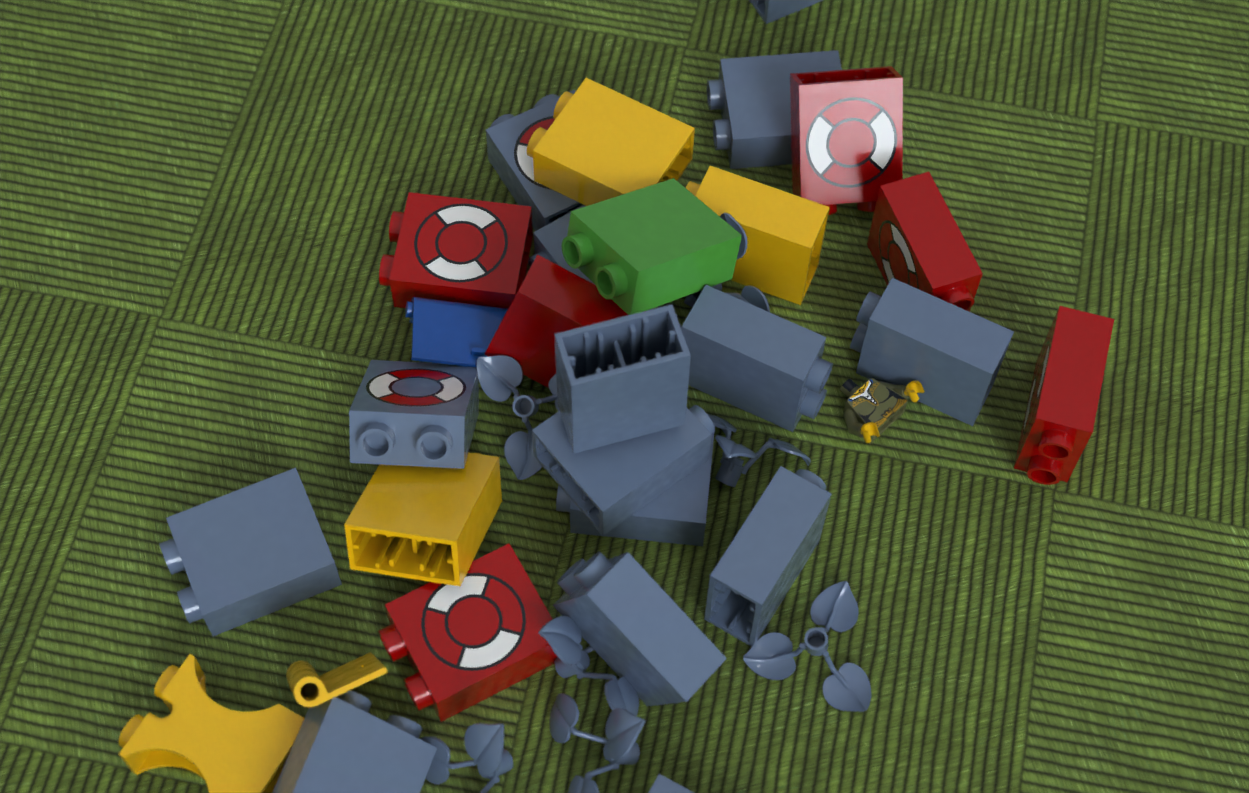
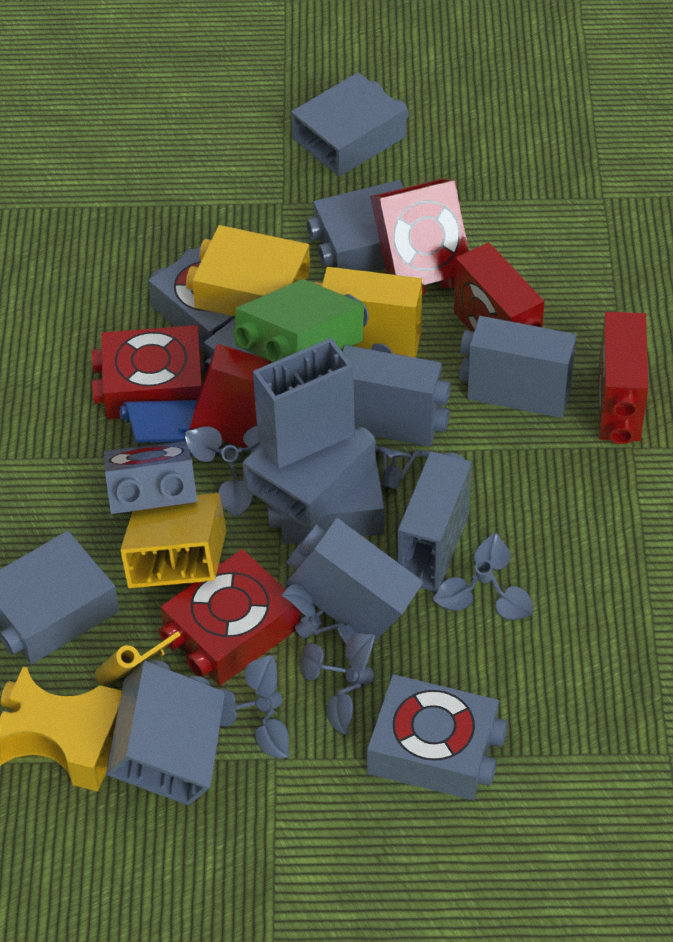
camera: 10 degrees left, 10 degrees down
(875, 405) = (488, 415): torso -> none

